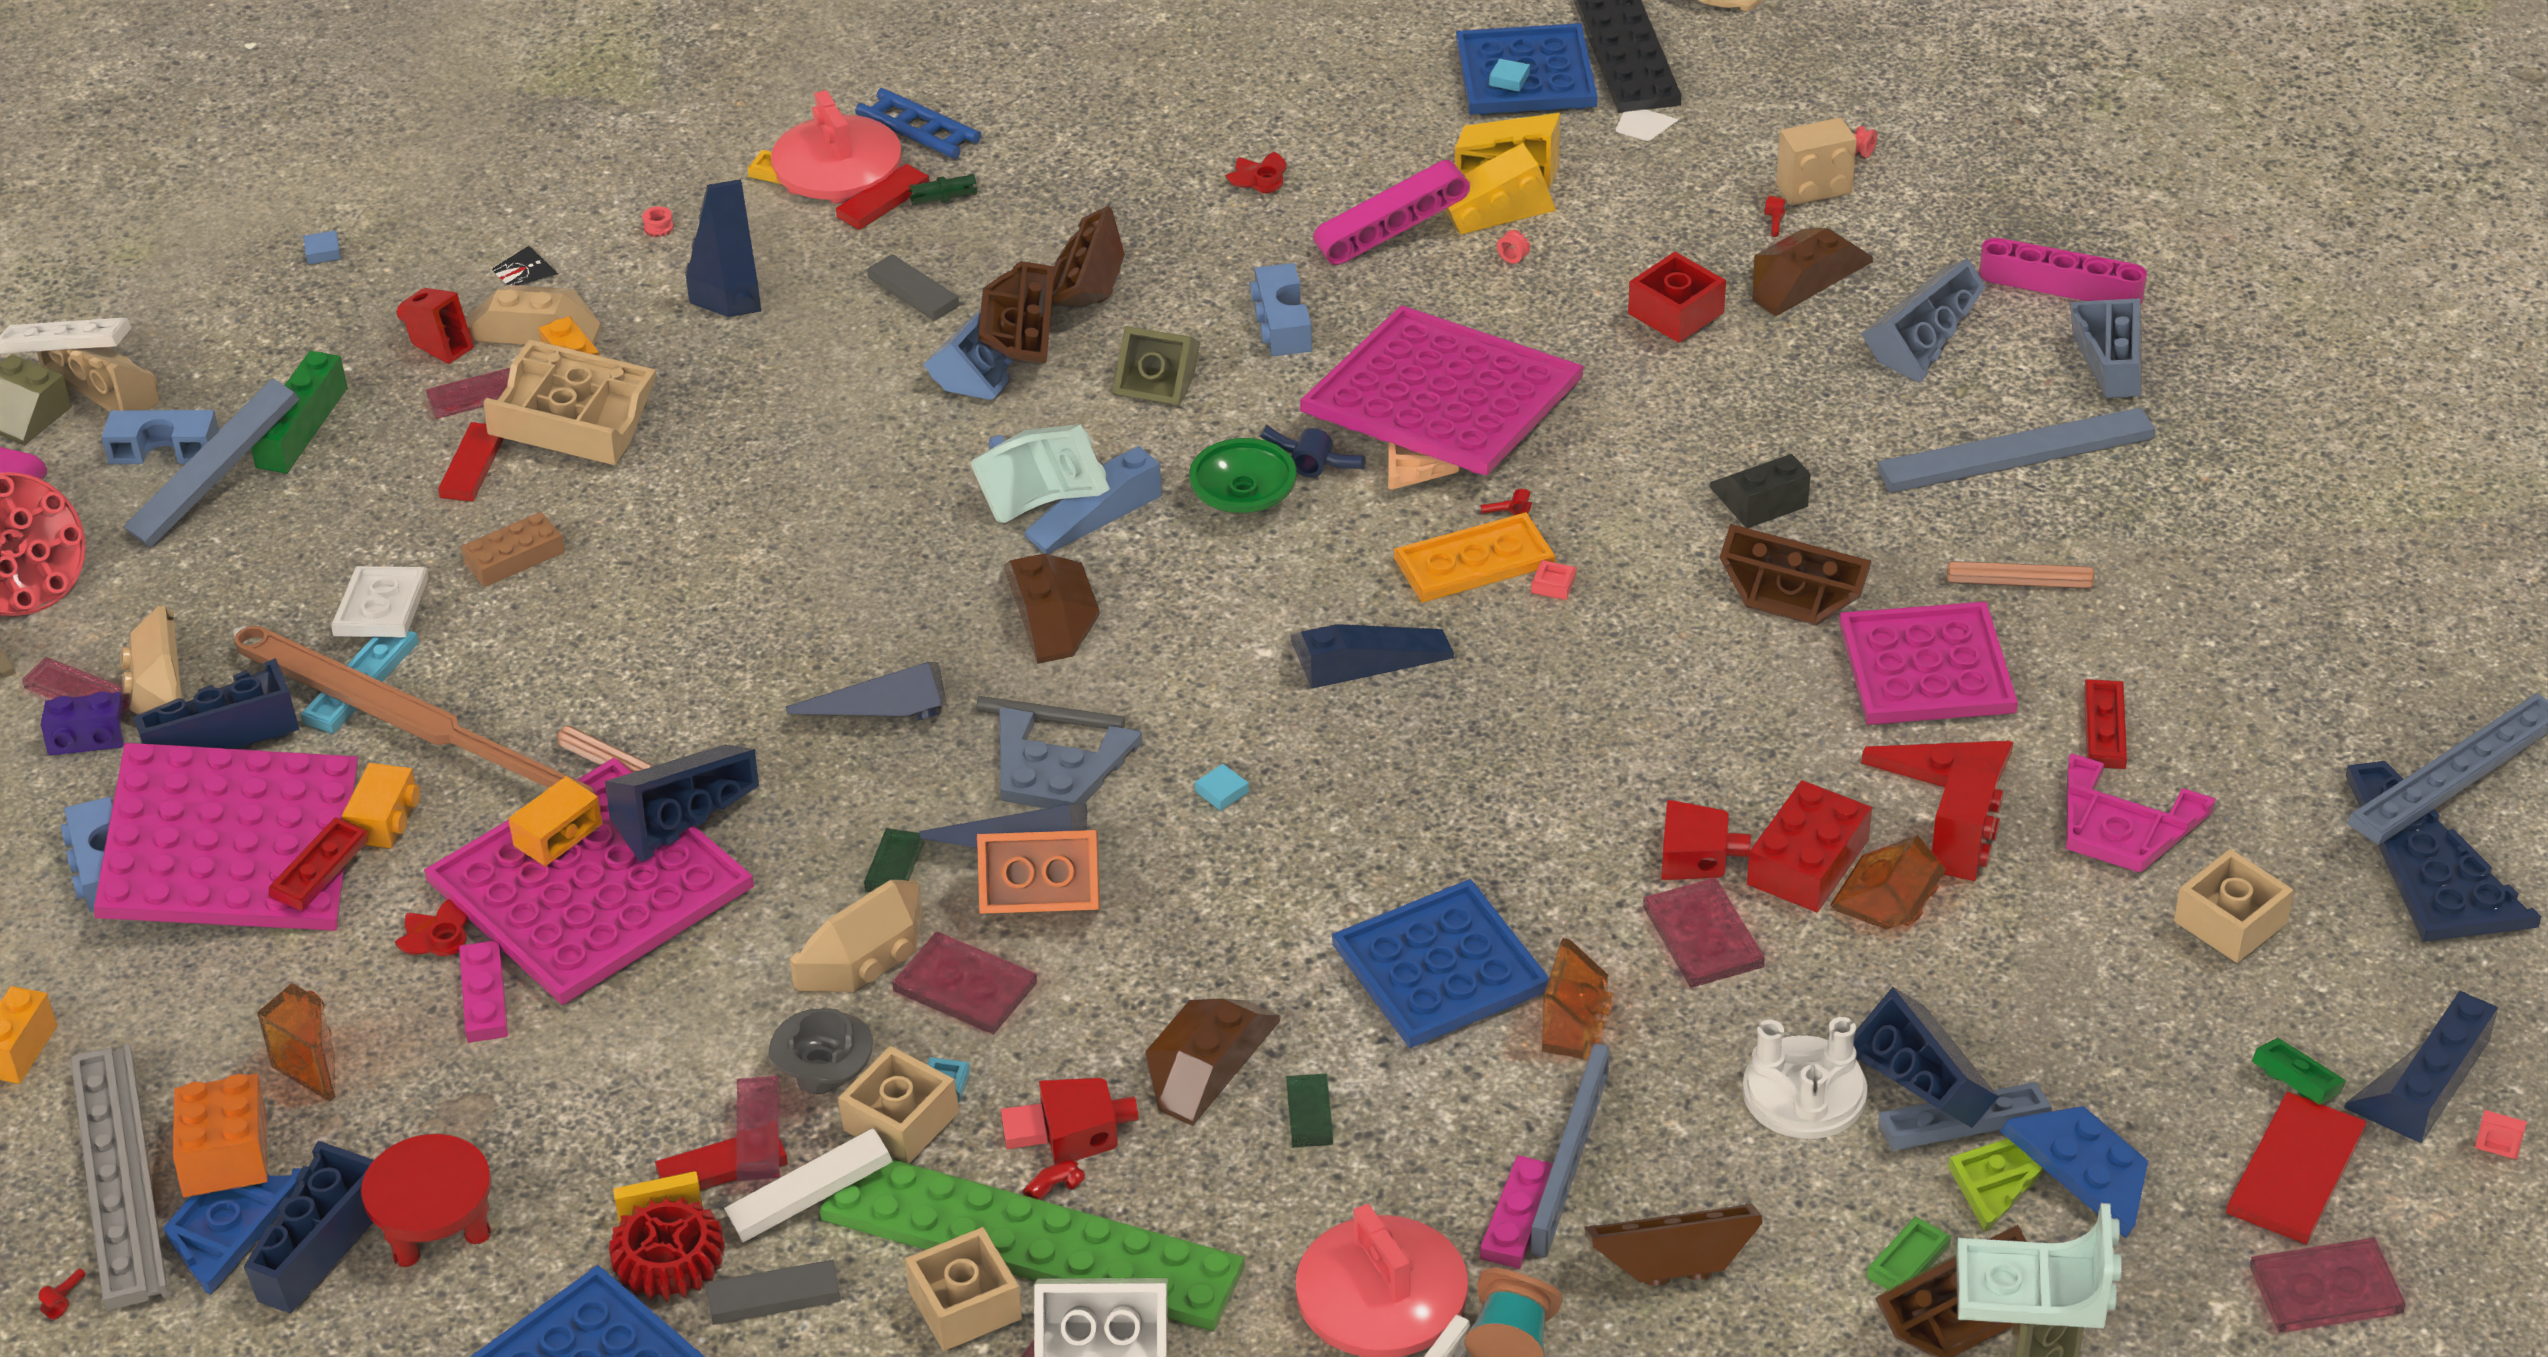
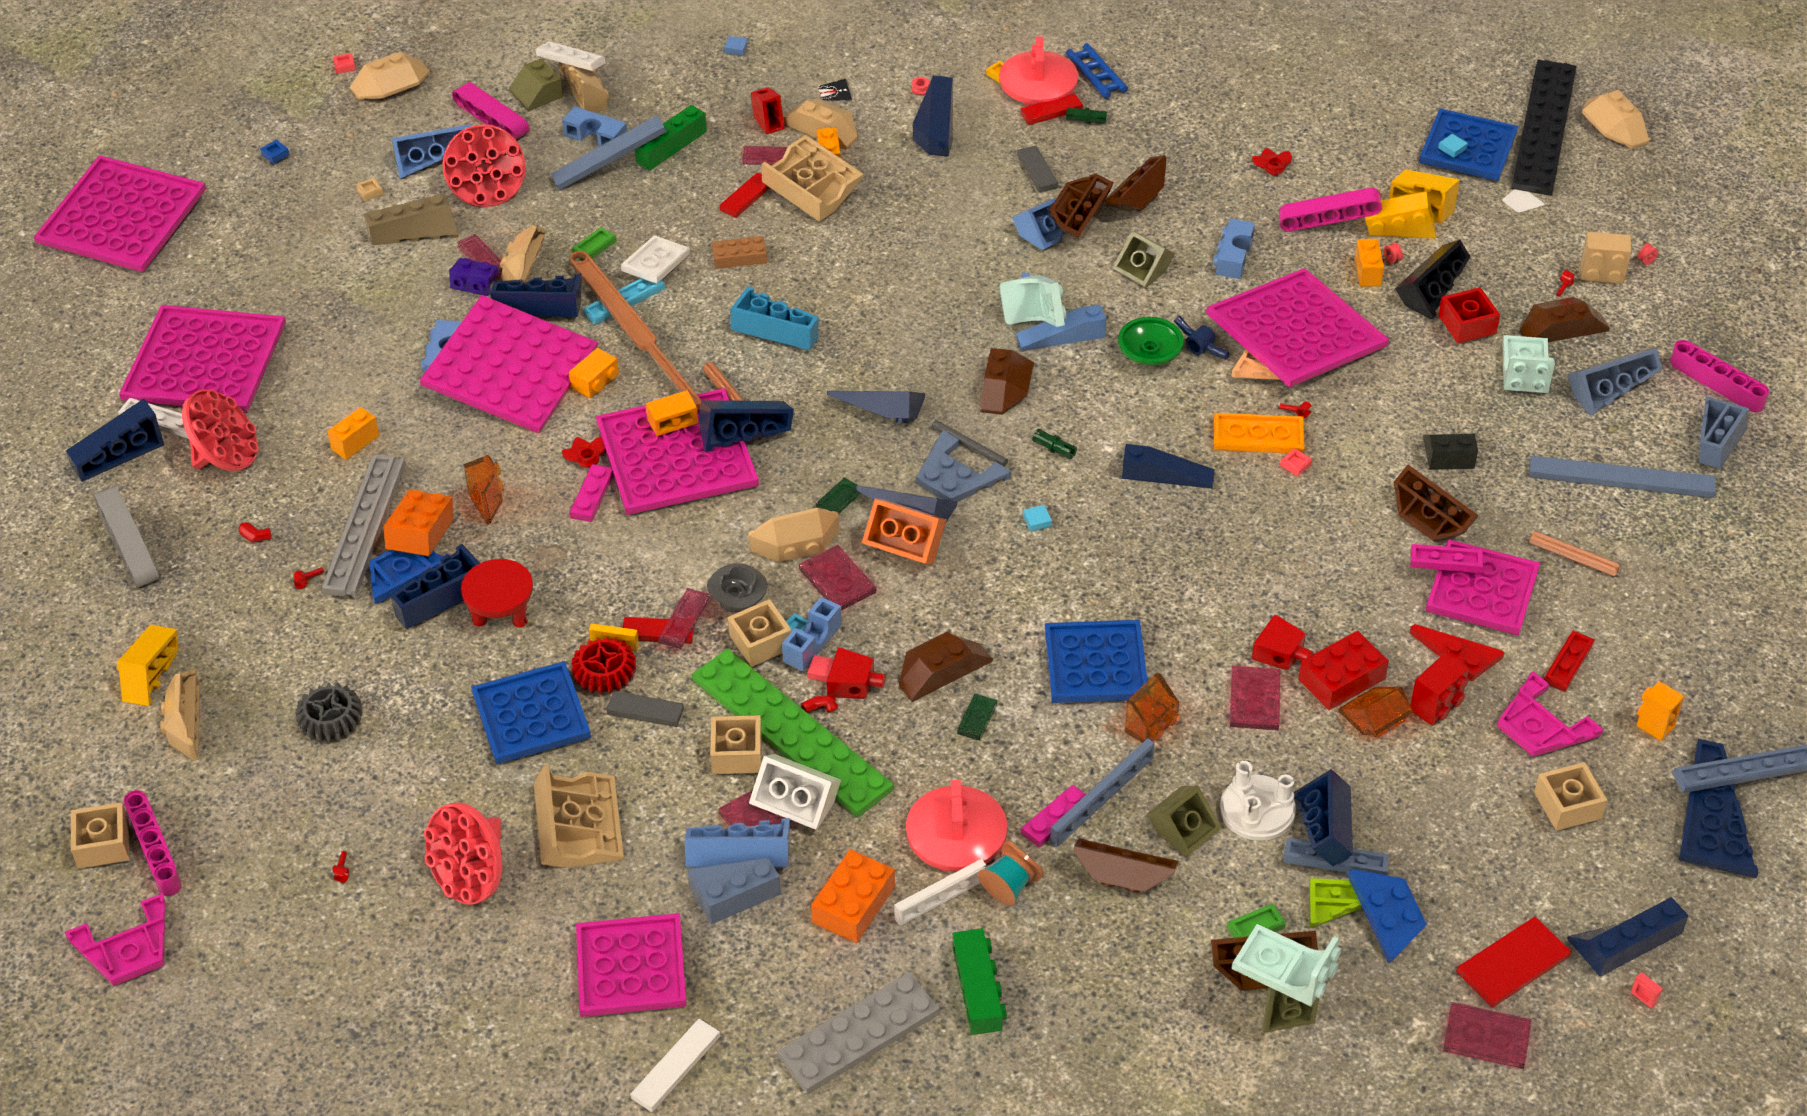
camera: 25 degrees right, 5 degrees up
(261, 608) = (595, 243): none -> bright green tile
(318, 864) = (543, 394): red tile -> none
(636, 631) = (773, 320): none -> dark azure wedge
(808, 1185) = (691, 658): white tile -> none
(983, 1086) = (822, 624): none -> medium blue arch
(1183, 670) = (1054, 444): none -> dark green pin
(1489, 269) = (1369, 262): none -> light orange brick
(1593, 264) = (1433, 279): none -> black wedge
(1715, 1142) = (1185, 819): none -> olive slope
(1796, 340) = (1526, 364): none -> light aqua bracket
(1859, 638) = (1446, 558): none -> dark pink plate
(2278, 744) = (1659, 710): none -> light orange brick
(2298, 1071) = (1549, 907): green plate -> none

